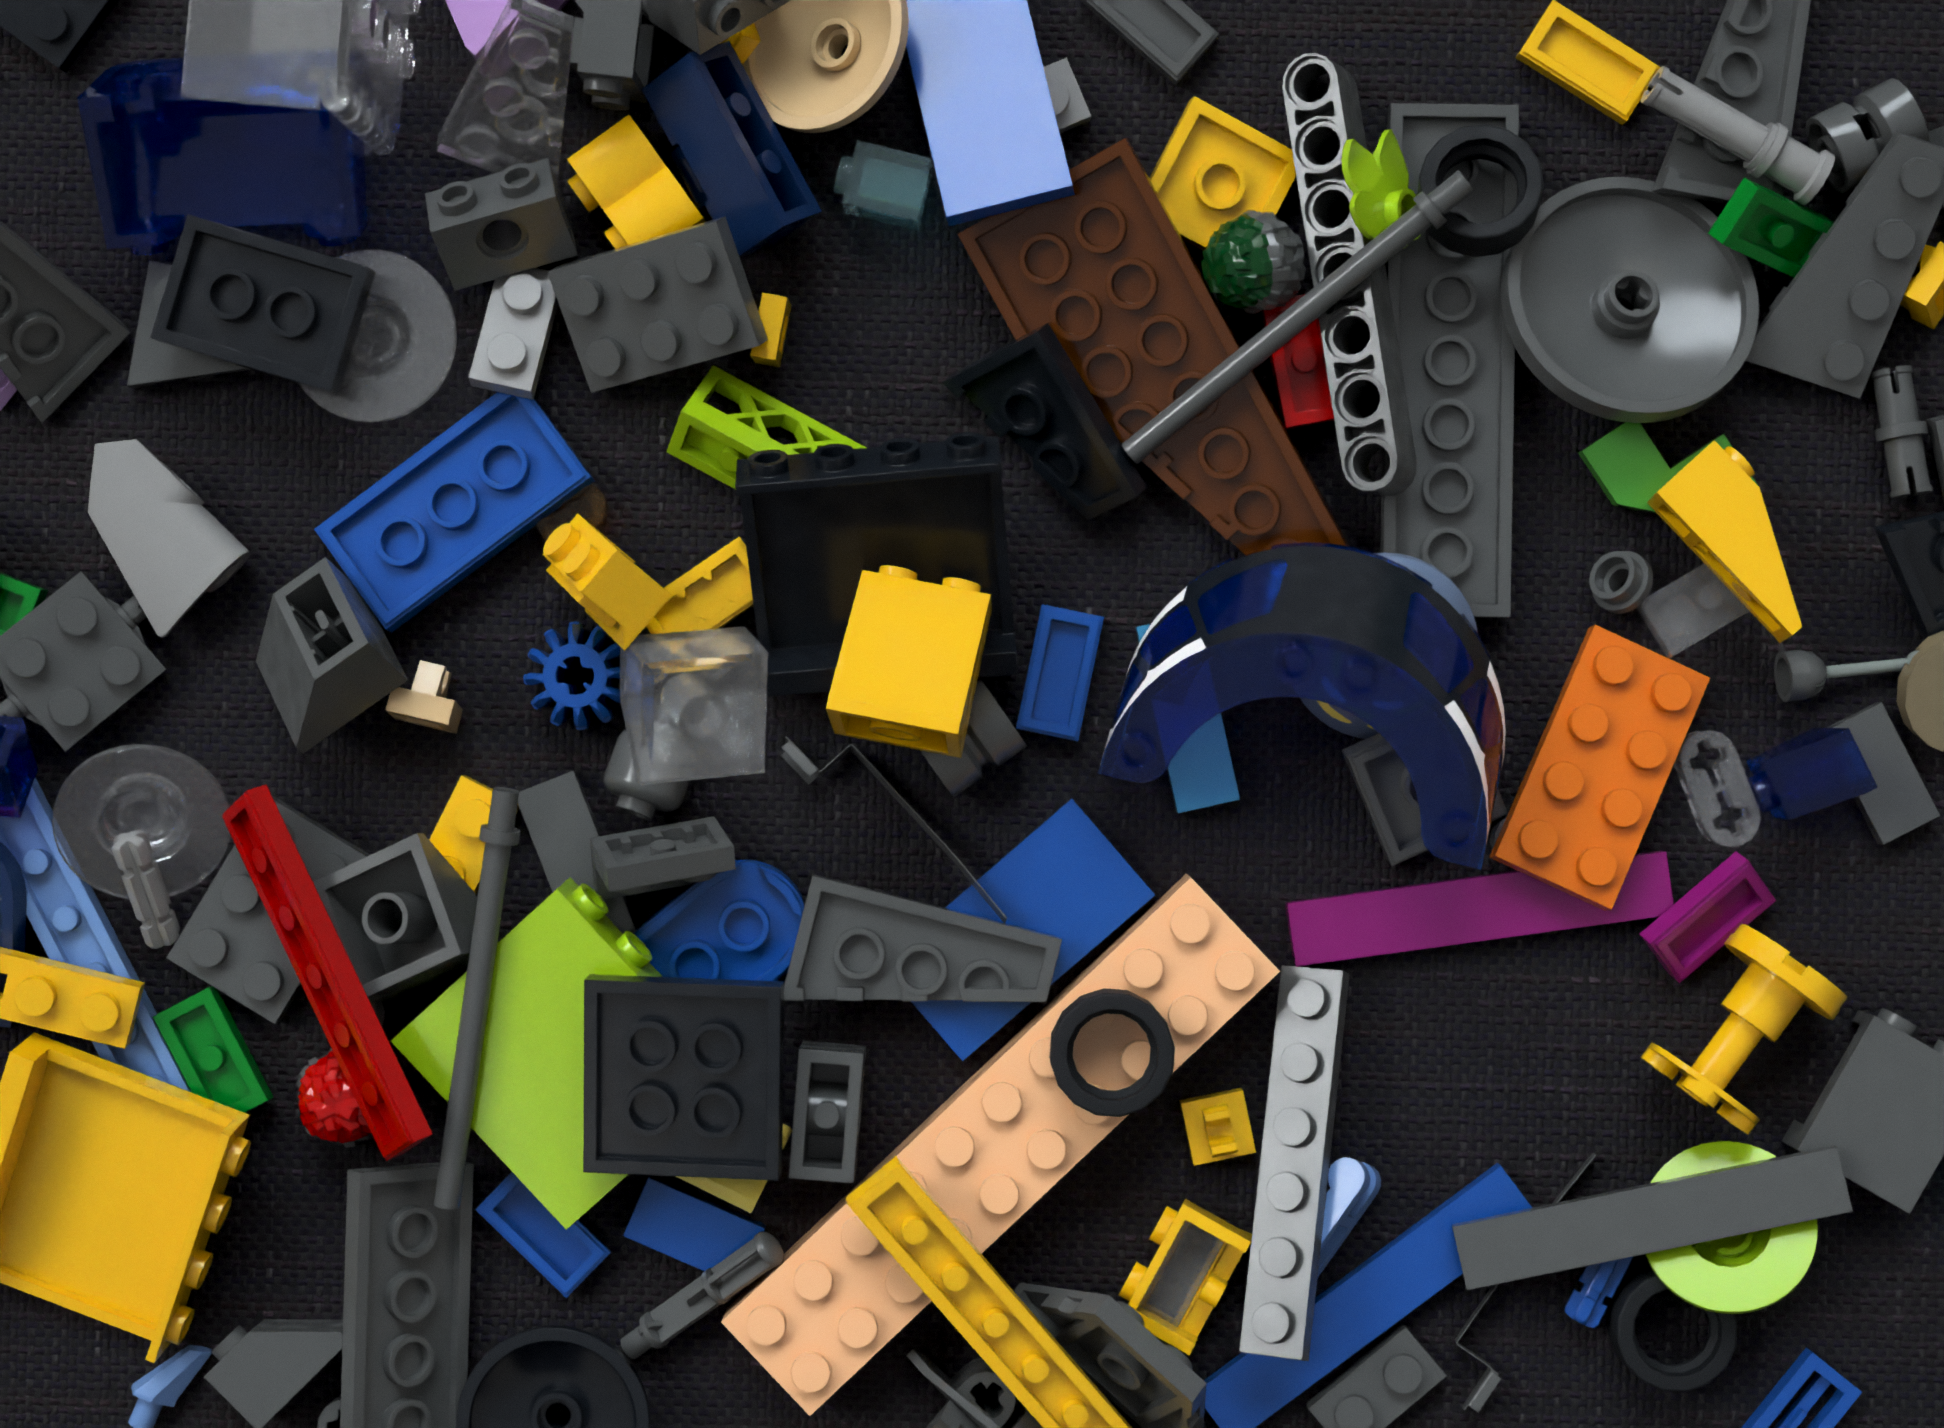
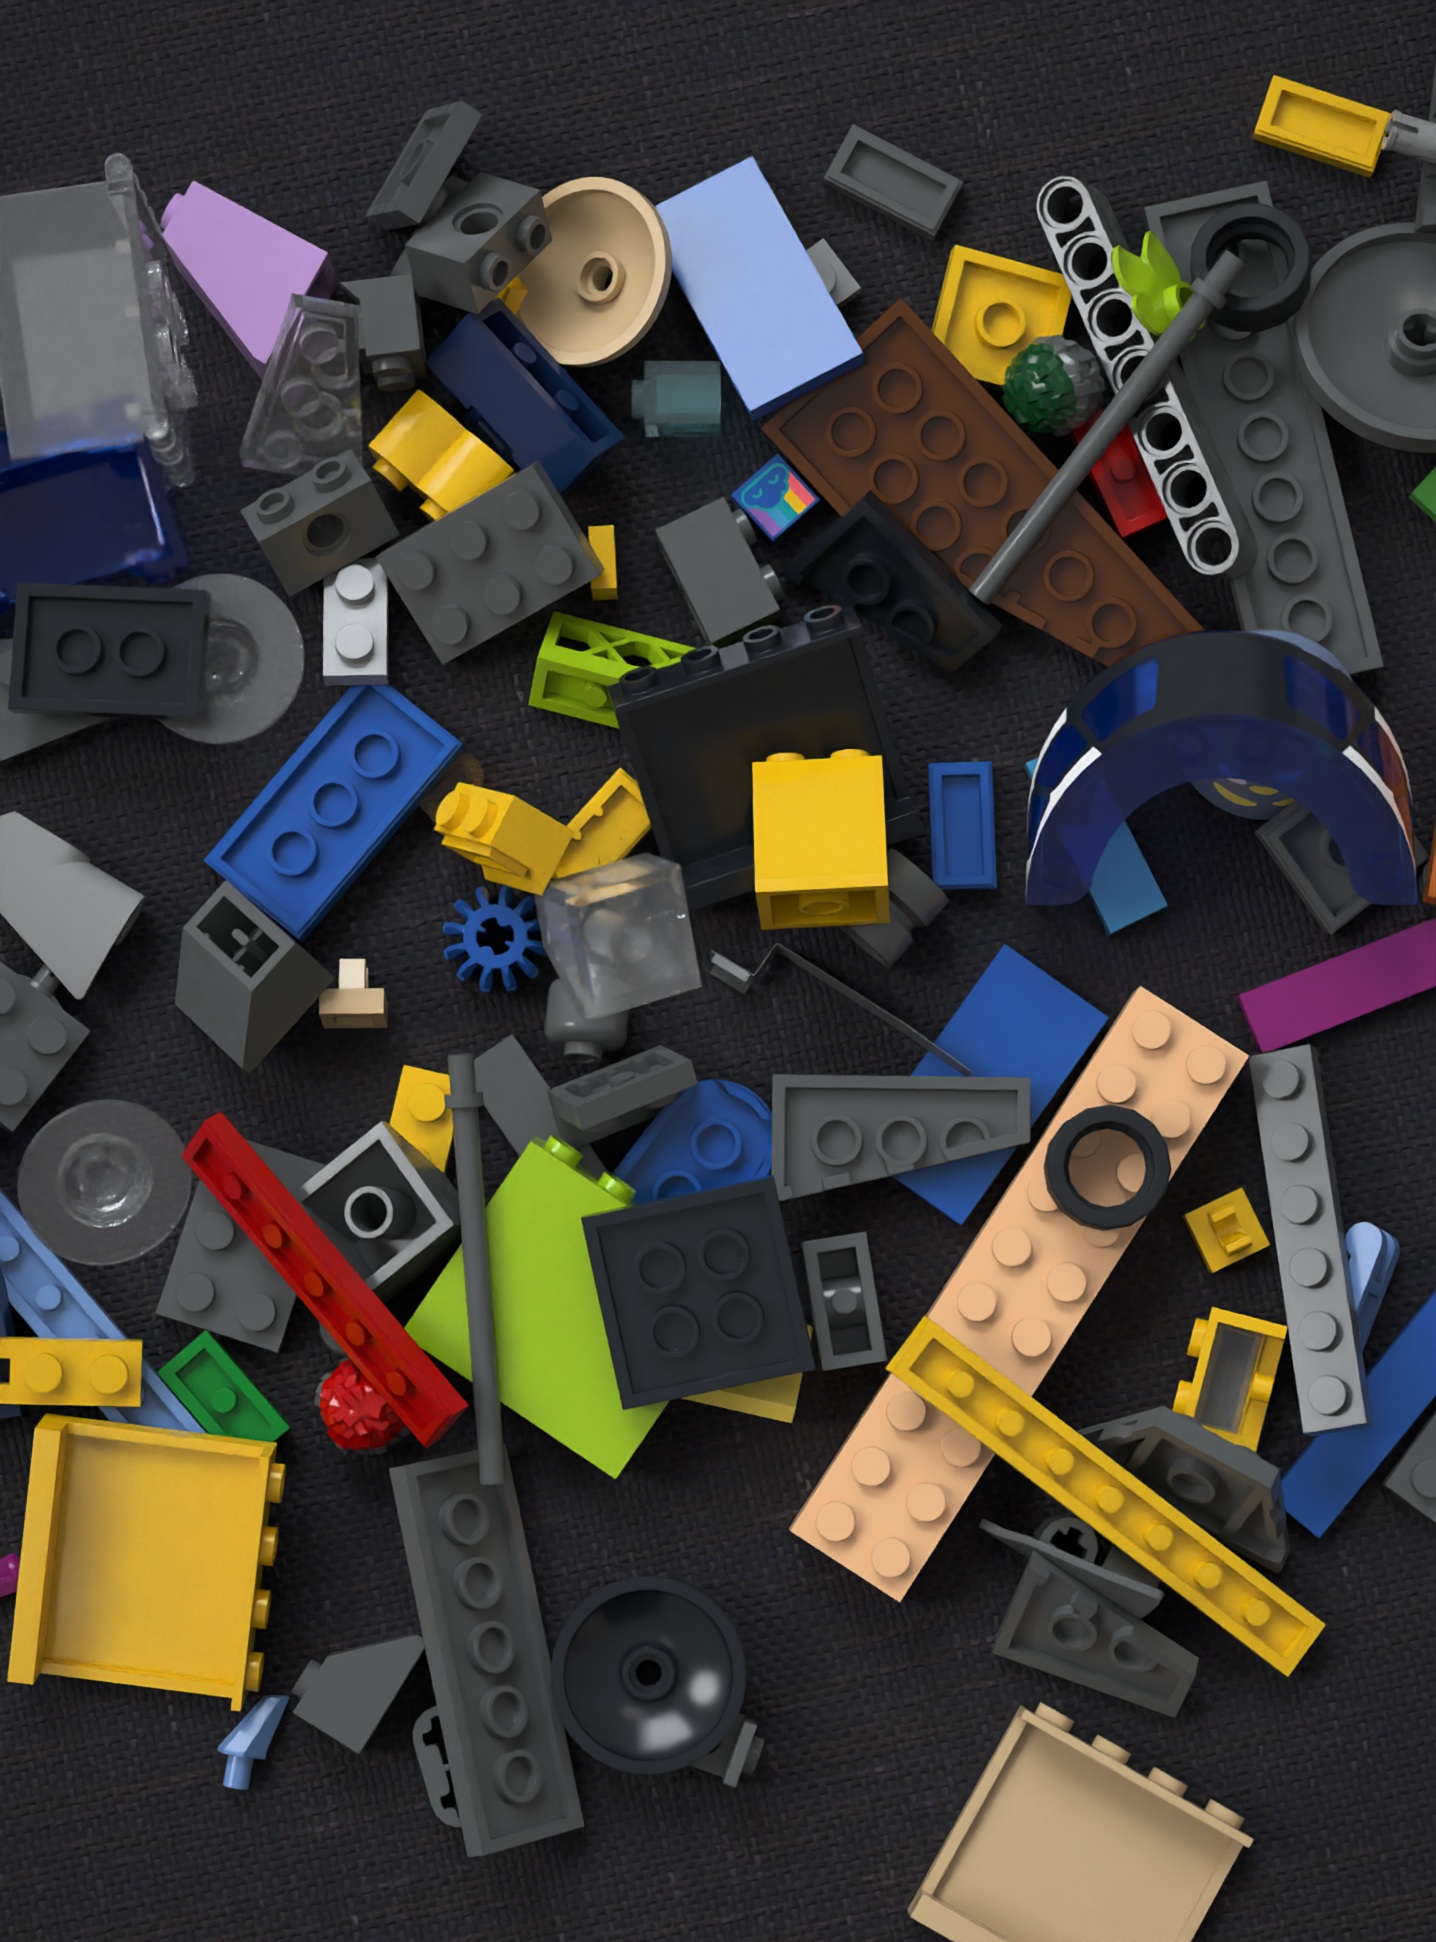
camera: 20 degrees left, 5 degrees down
(146, 889) = (122, 1248): light grey axle -> none
(557, 1253) = (588, 1496): blue tile -> none
(688, 1225) = (739, 1457): blue tile -> none
(704, 1294) = (765, 1514): dark grey piece -> none
(881, 368) = (719, 573): none -> dark grey brick
(956, 306) = (775, 499): none -> tile

